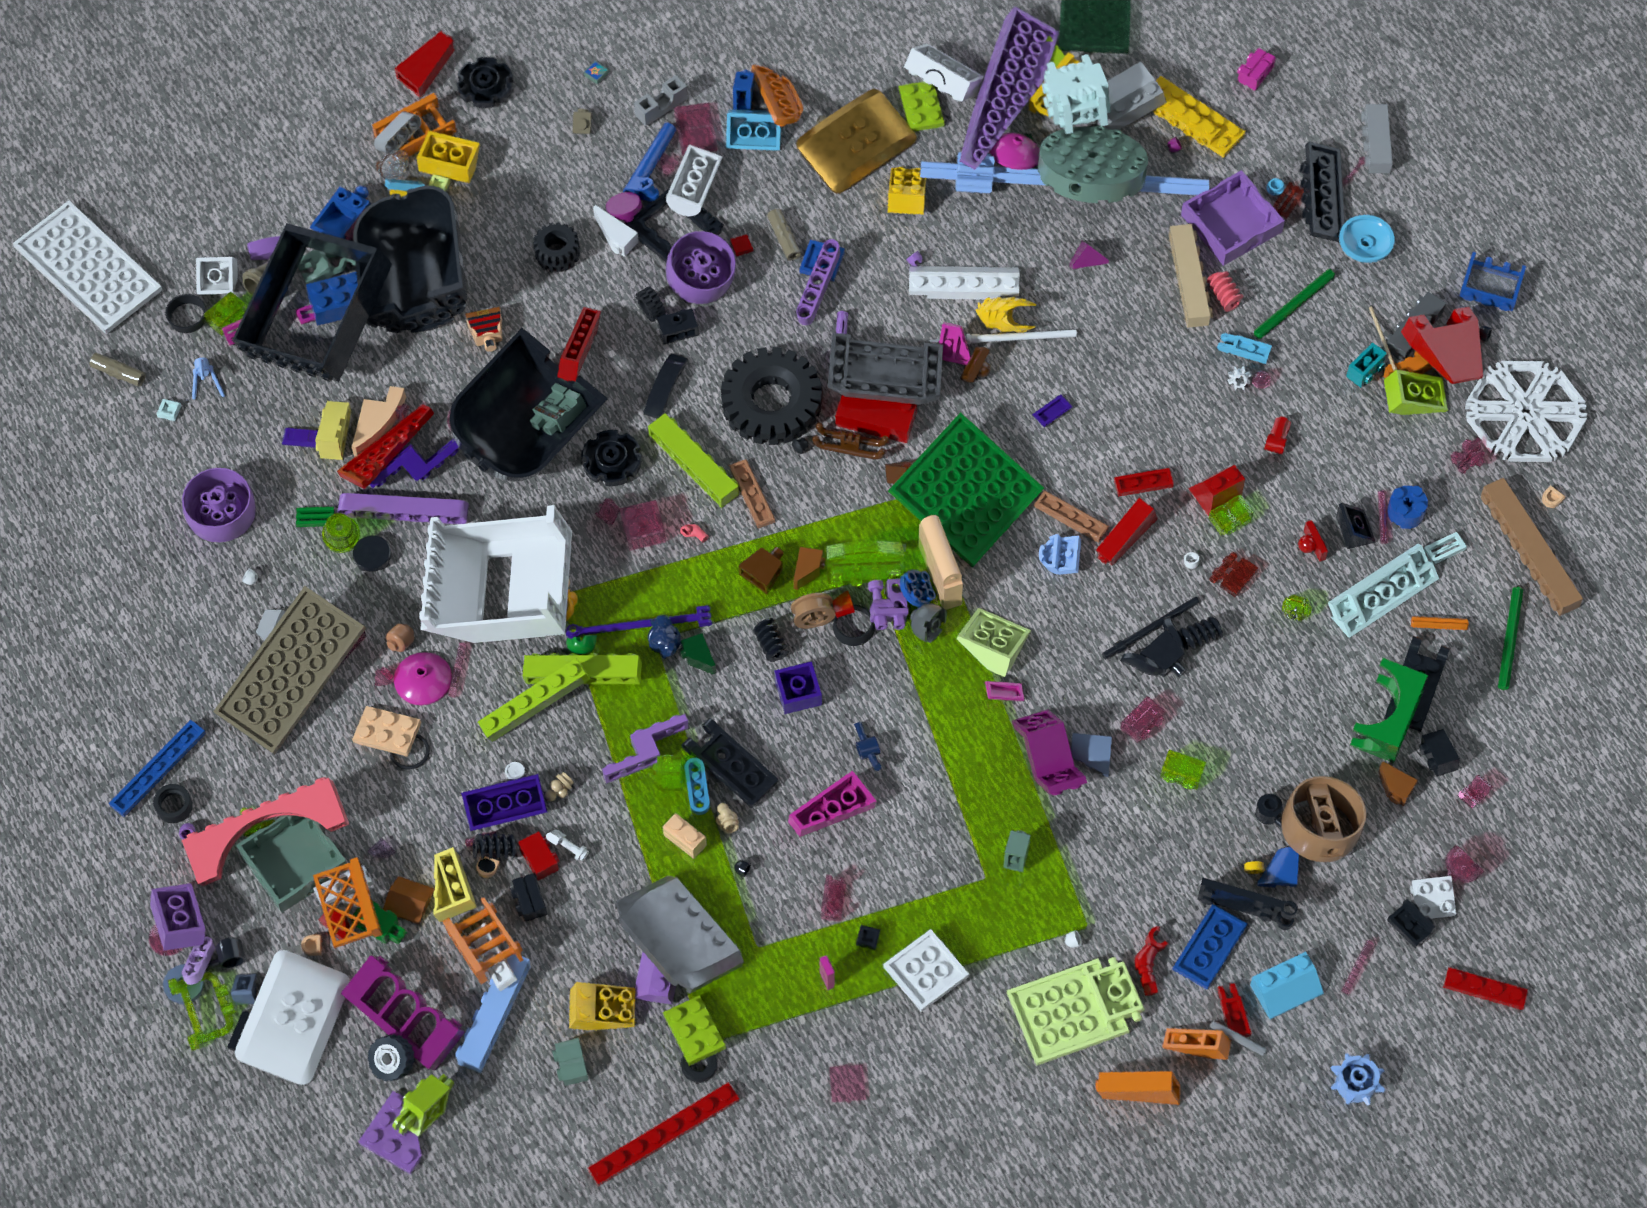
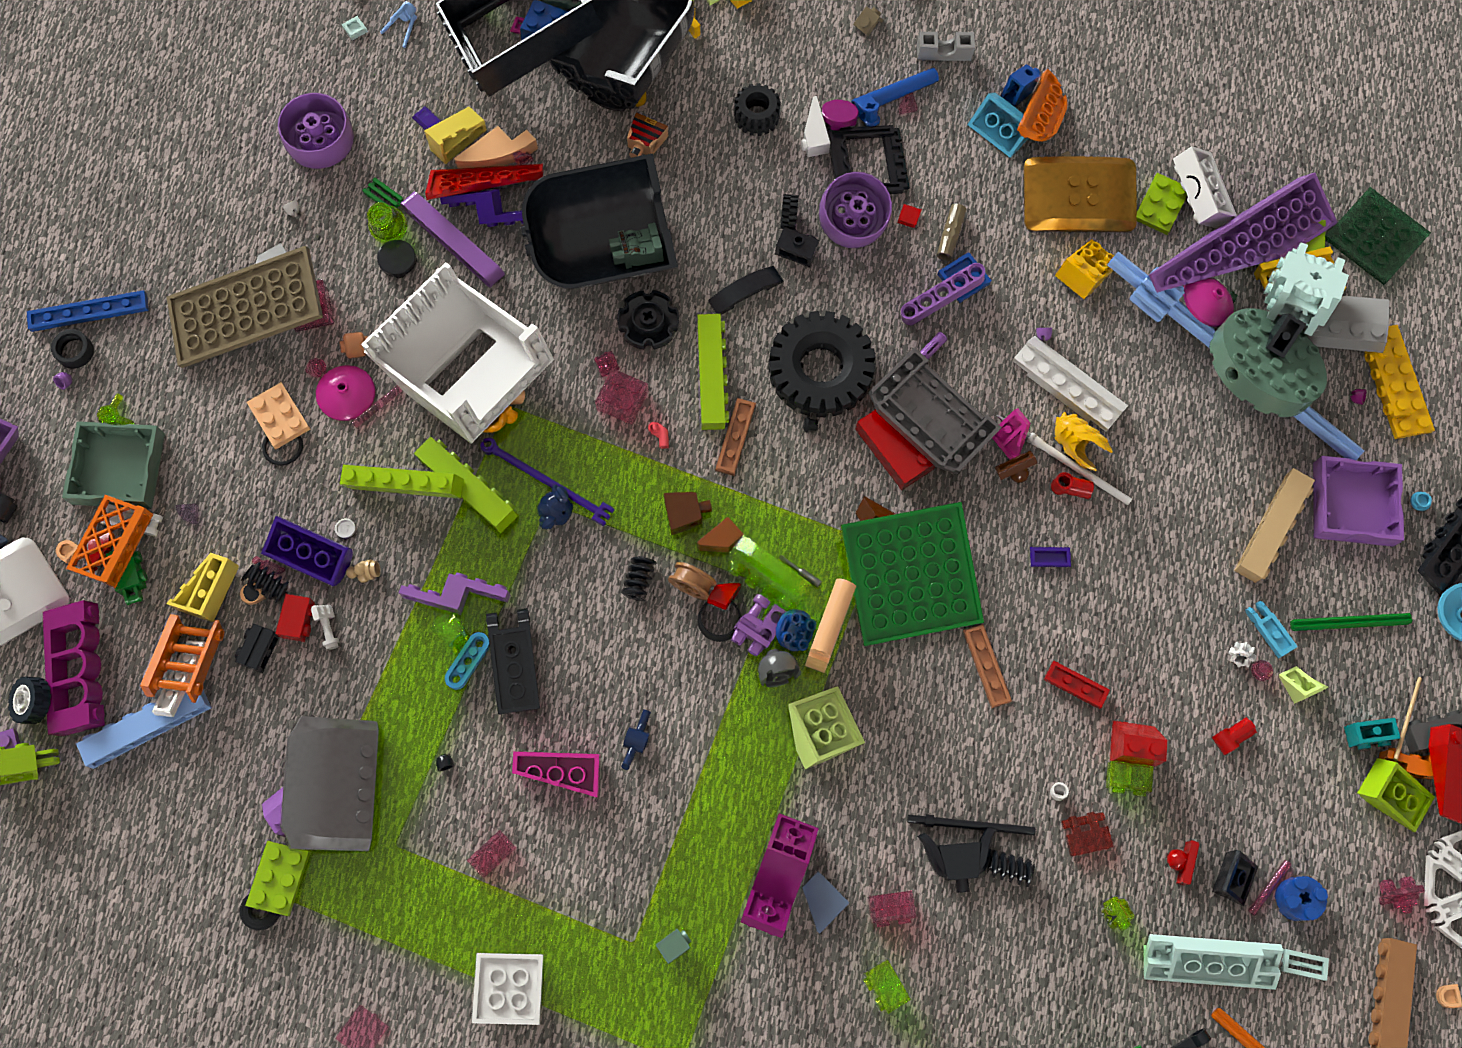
camera: 35 degrees right, 10 degrees up
(210, 847) = (156, 438): coral arch -> none
(408, 899) = (169, 571): dark orange slope -> none
(571, 1062) = (162, 821): sand green brick -> none
(579, 344) = (695, 203): red brick -> none
(581, 647) = (481, 462): green hair -> none
(601, 1007) = (228, 794): yellow slope -> none
(663, 1134) = (179, 948): red plate -> none
(684, 836) = (417, 697): light nougat brick -> none
(693, 181) = (912, 131): white brick -> none
(695, 127) = (955, 90): clear pink piece -> none
(697, 653) = (571, 542): dark green slope -> none
(727, 819) = (469, 709): tan piece -> none
(798, 687) = (623, 639): dark purple brick -> none
(827, 972) = (420, 923): dark pink tile -> none
(850, 443) = (852, 454): reddish brown piece -> none
(868, 937) = (488, 914): black tile -> none
(1004, 691) = (793, 782): dark pink tile -> none
(1026, 350) = (1074, 486): none -> red piece
(1061, 554) = (948, 695): light blue slope -> none
(1087, 256) = (1196, 441): magenta slope -> none
(1088, 135) = (1284, 334): none -> black slope
(1126, 532) = (1020, 721): red slope -> none
(1225, 290) = (1295, 563): coral piece -> none
(1294, 370) = (1300, 685): none -> yellowish green slope
(1295, 189) = (1439, 517): clear red tile -> none

